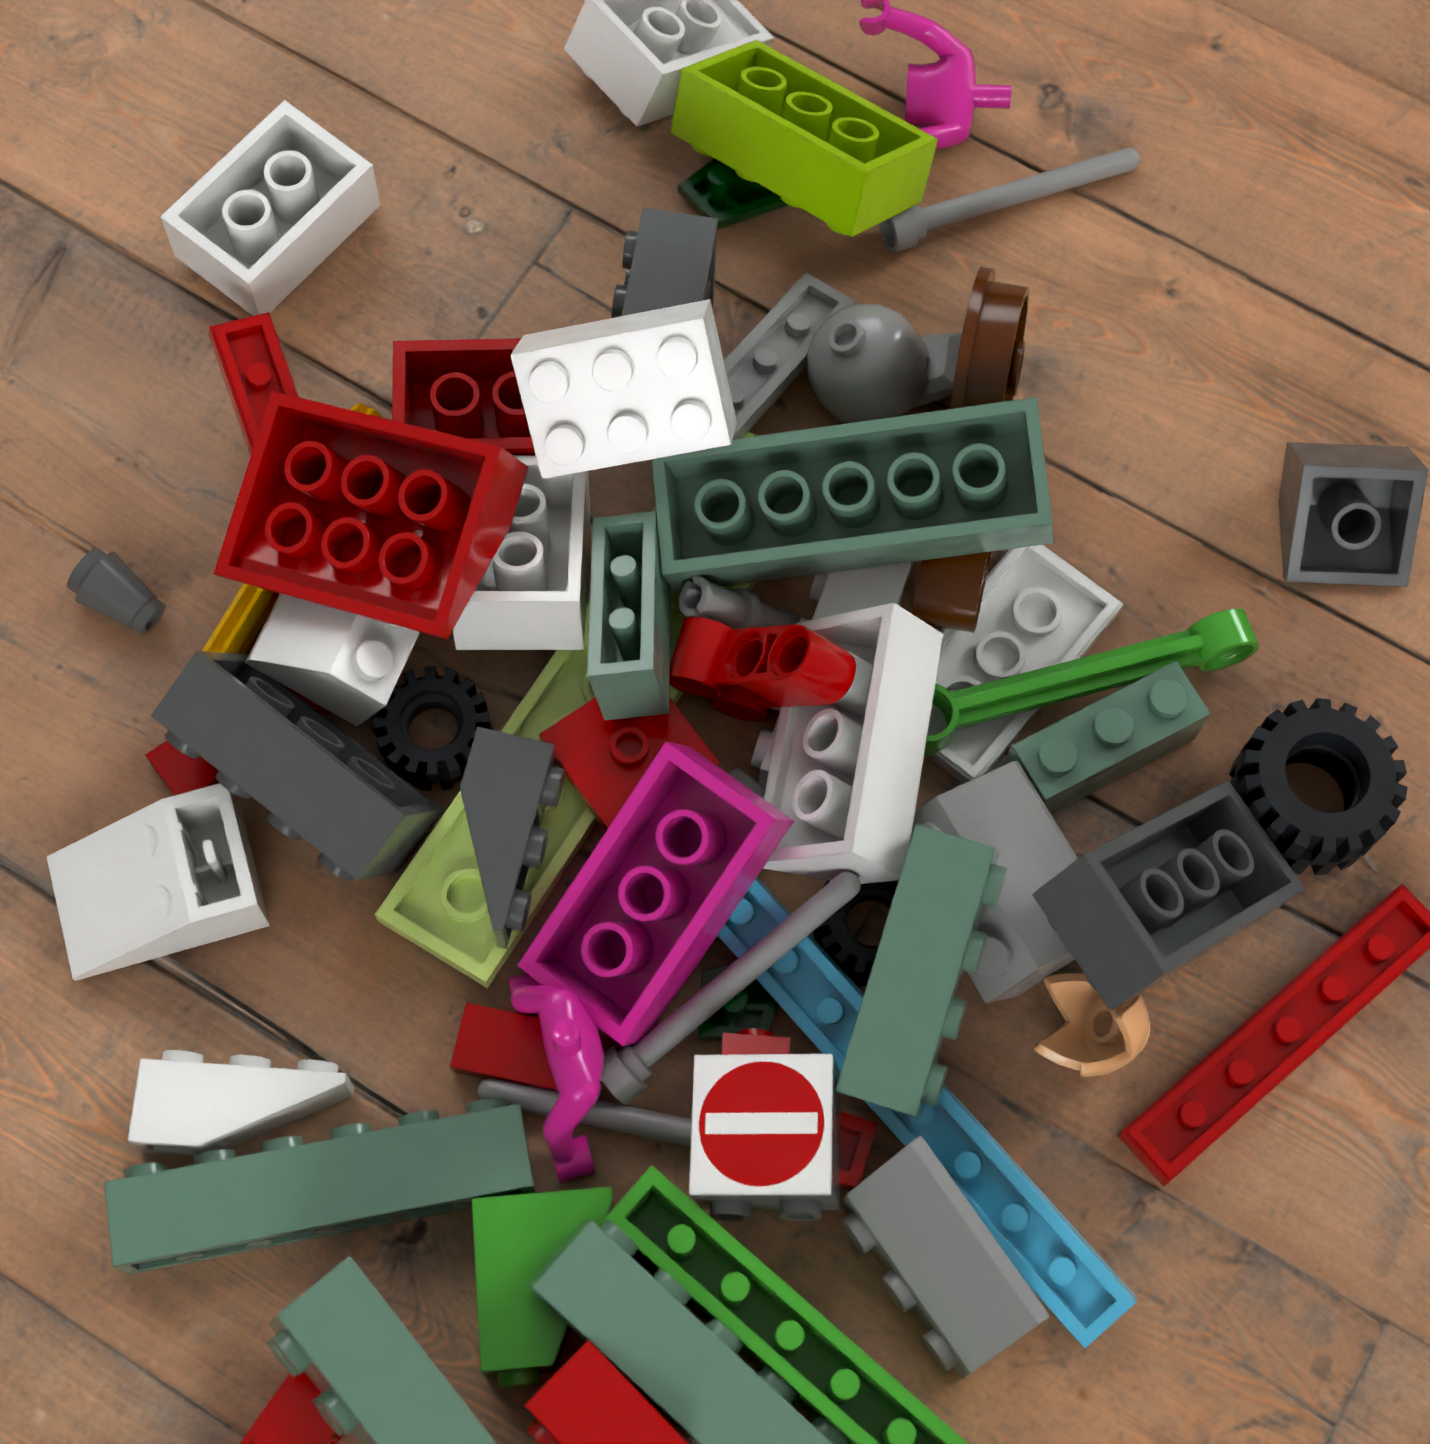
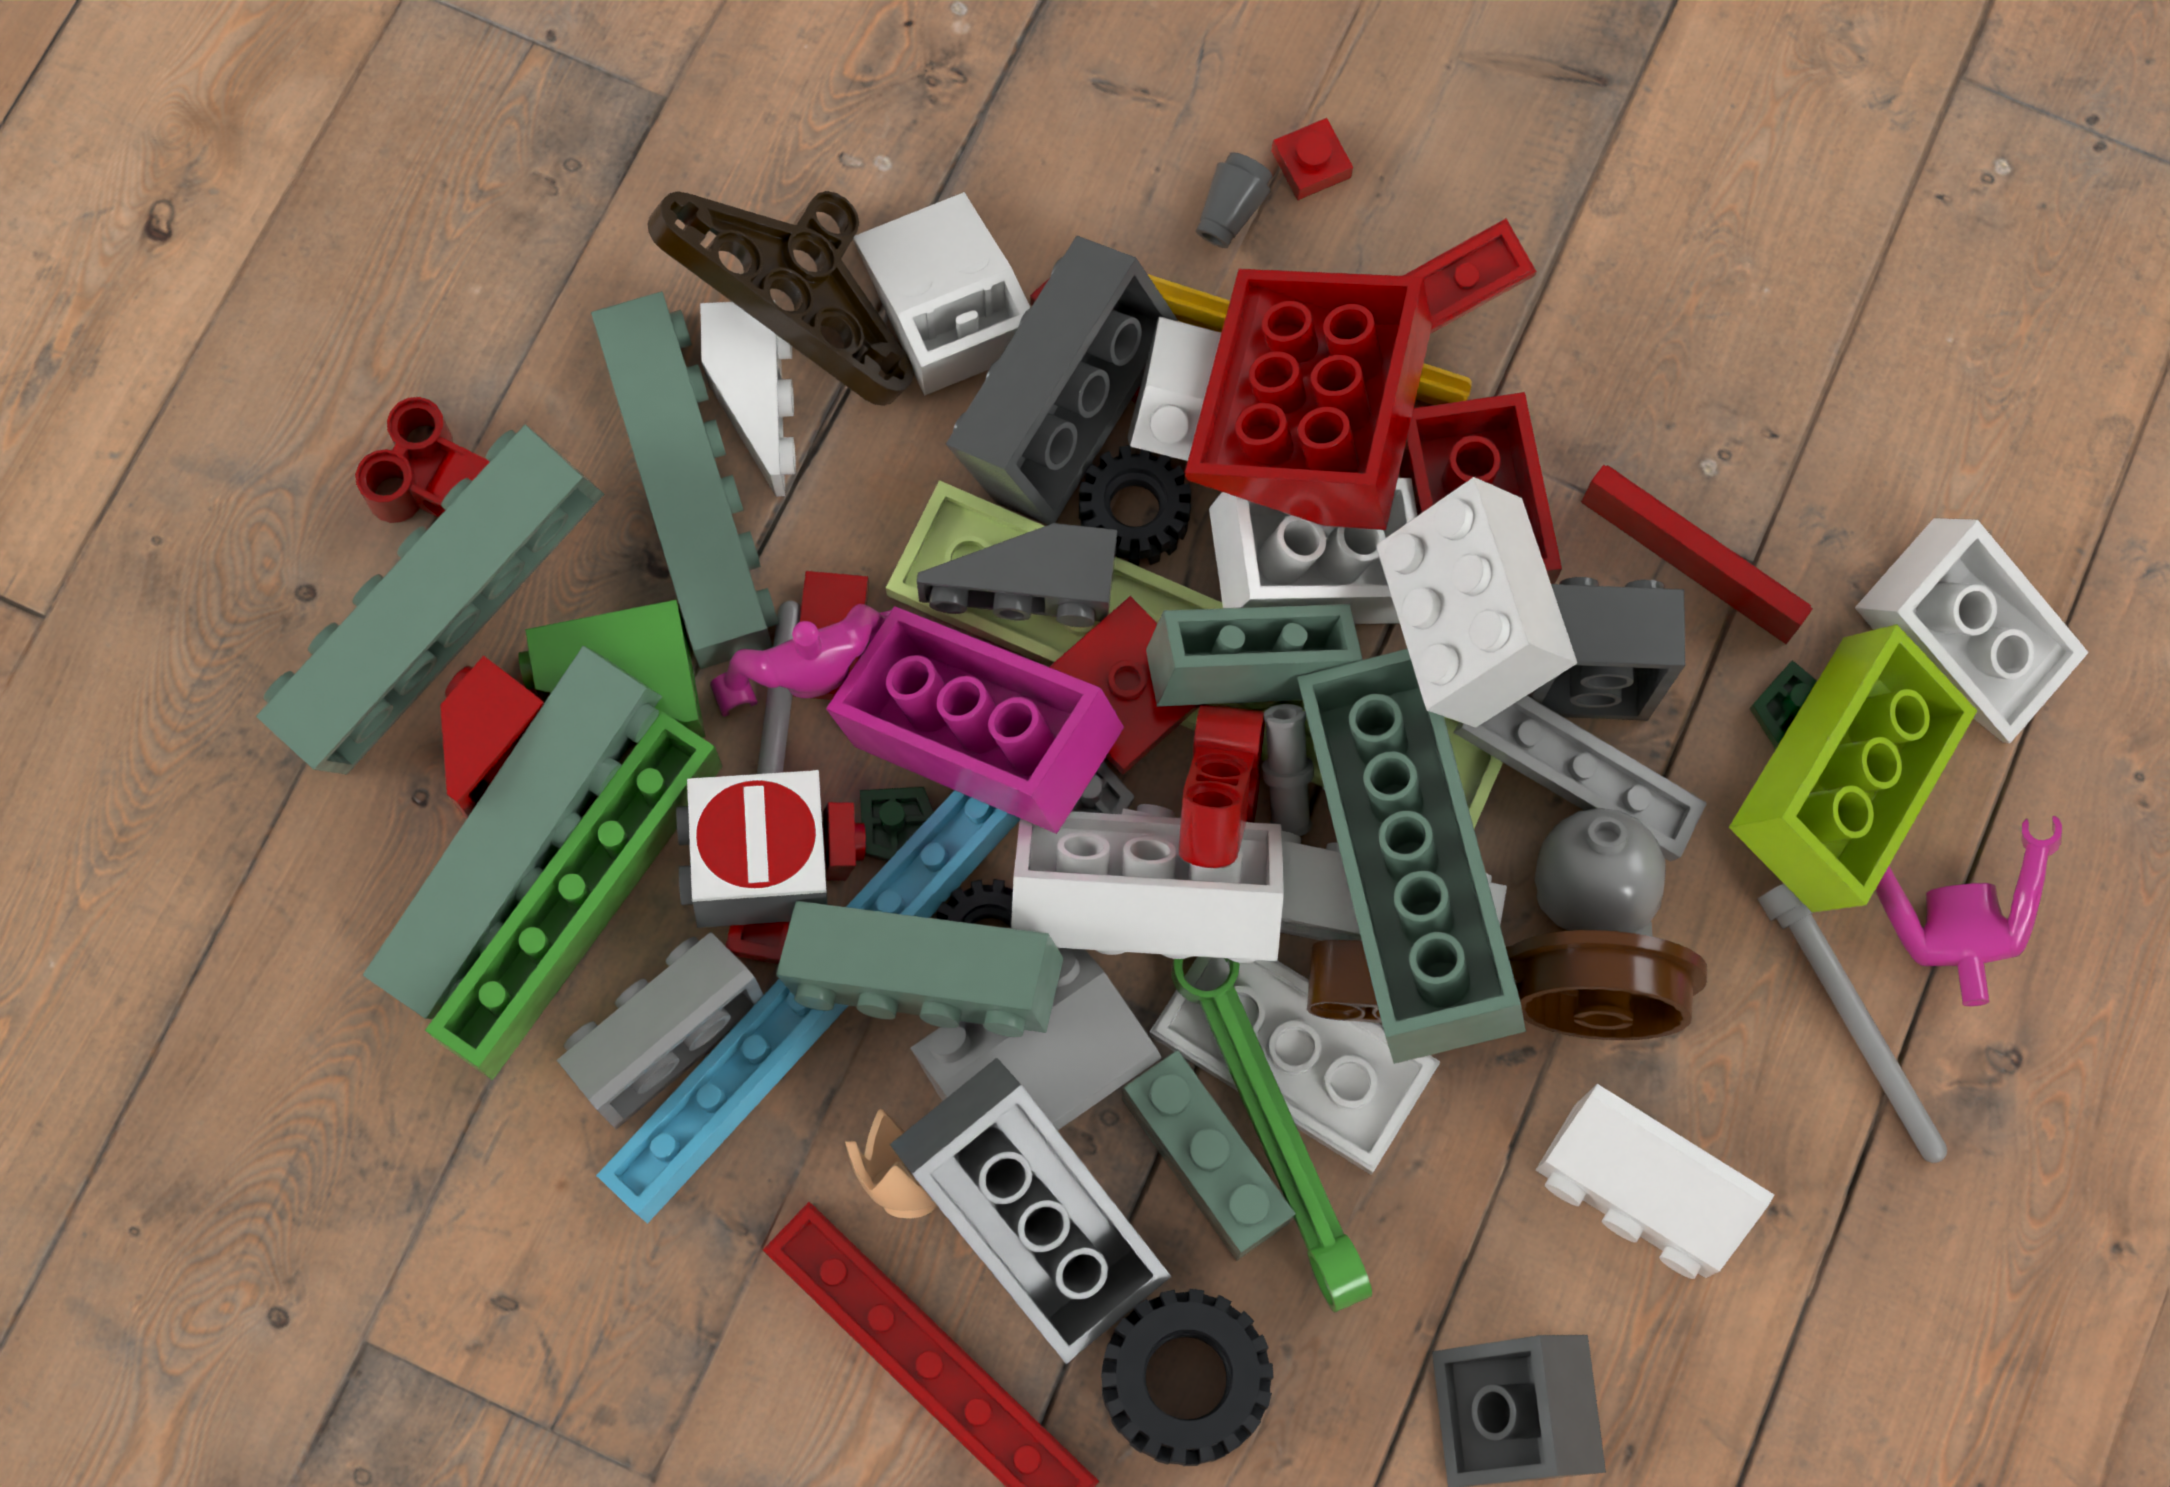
camera: 85 degrees right, 5 degrees up
(85, 515) = (1312, 158): none -> red plate
(143, 1010) = (768, 261): none -> dark brown beam
(272, 210) = (1668, 260): white brick -> none
(565, 242) = (1696, 554): none -> red tile
(631, 1065) = (817, 730): light grey piece -> none
(1157, 368) = (1652, 1184): none -> white slope

